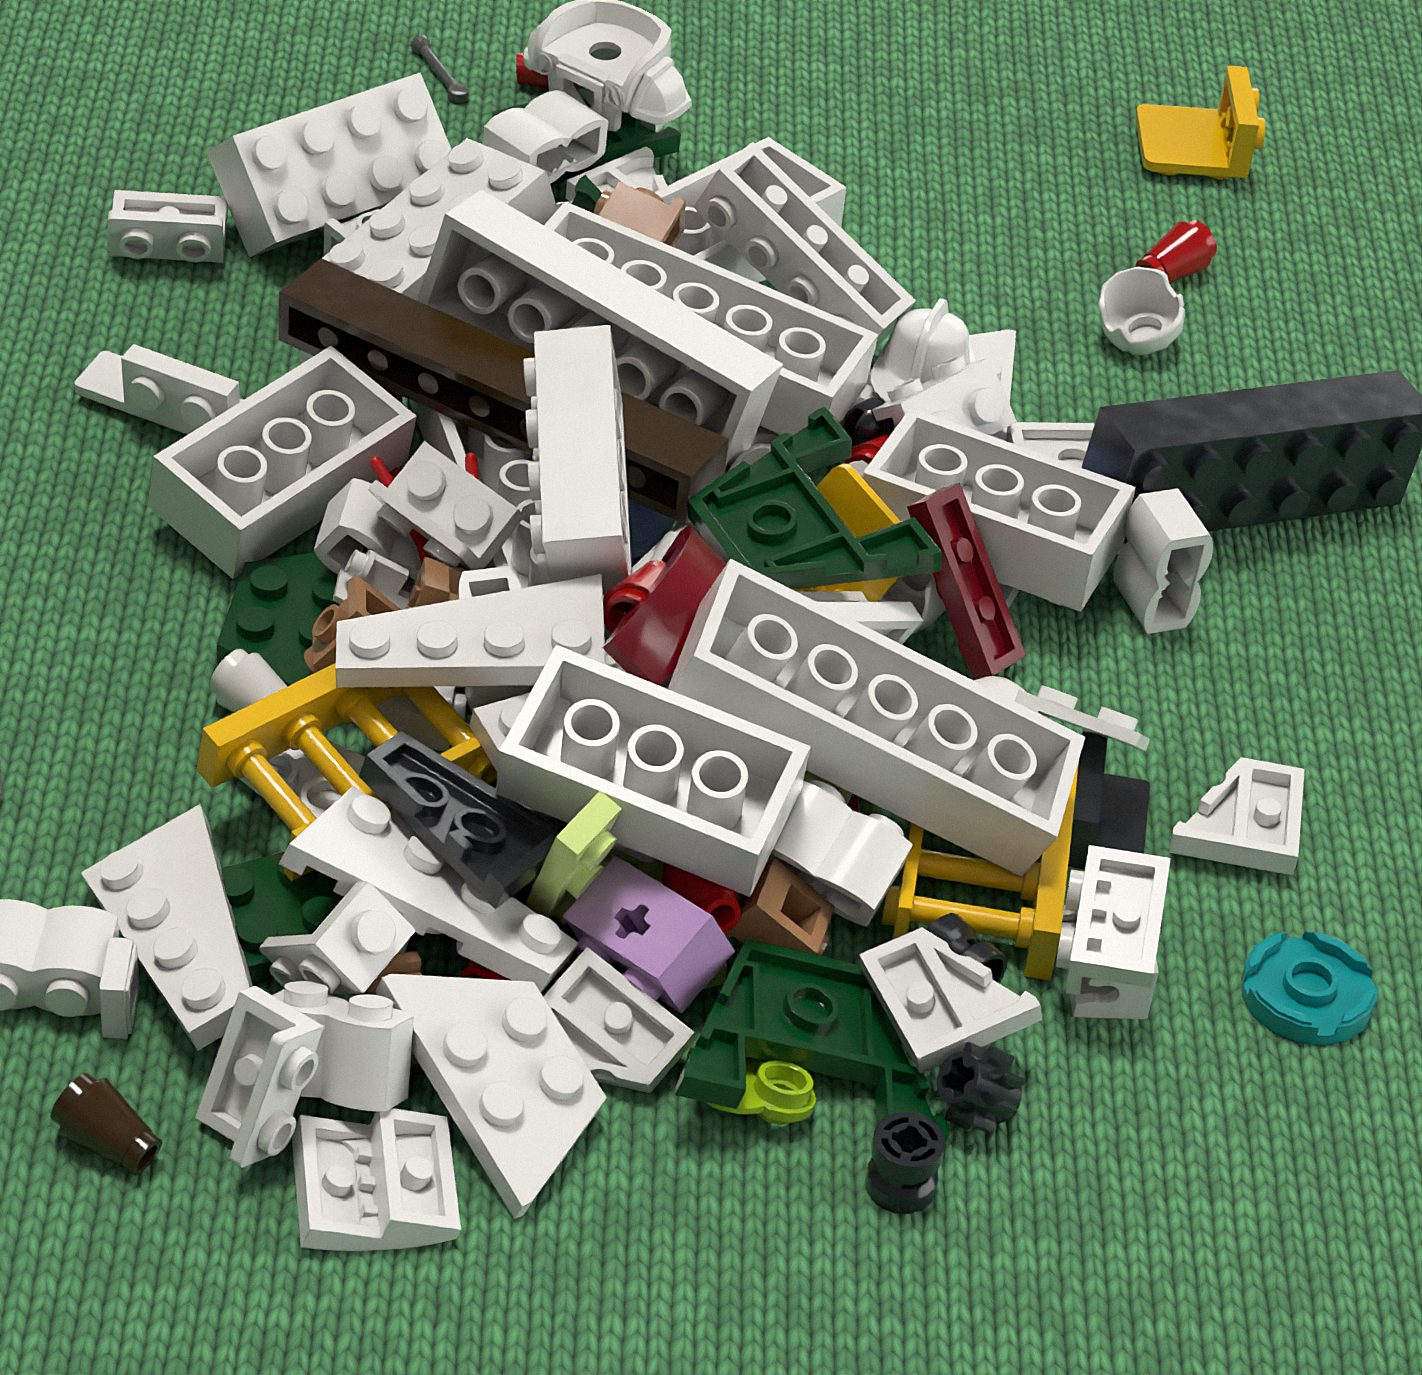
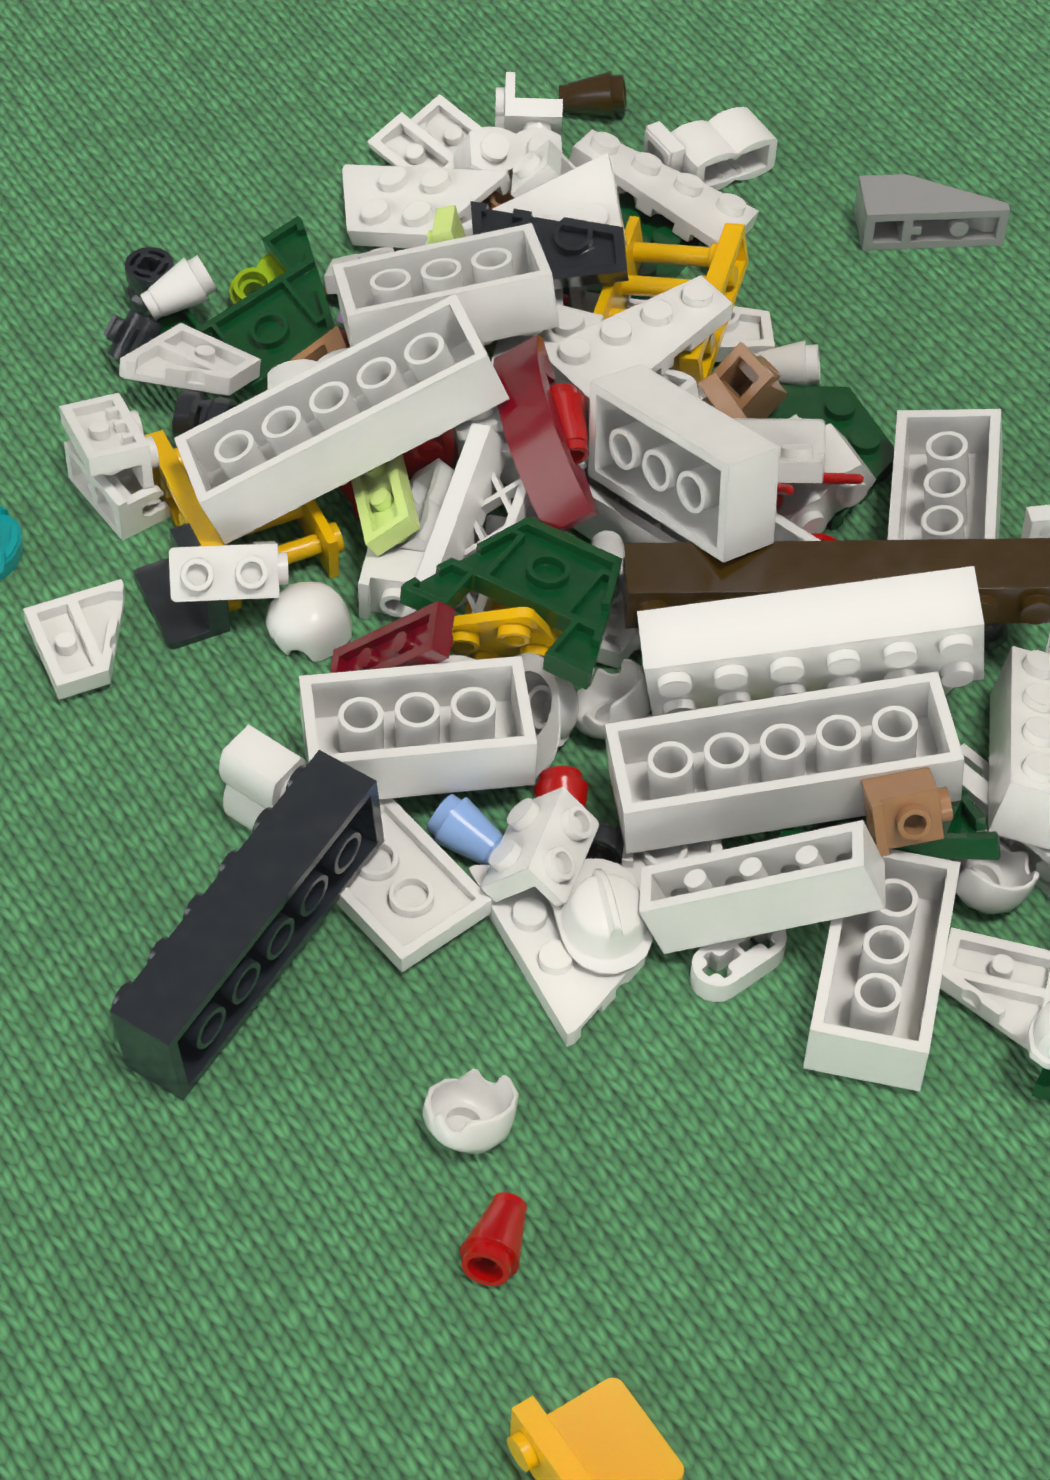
camera: 150 degrees right, 10 degrees up
(887, 1084) = (179, 288): none -> white cone

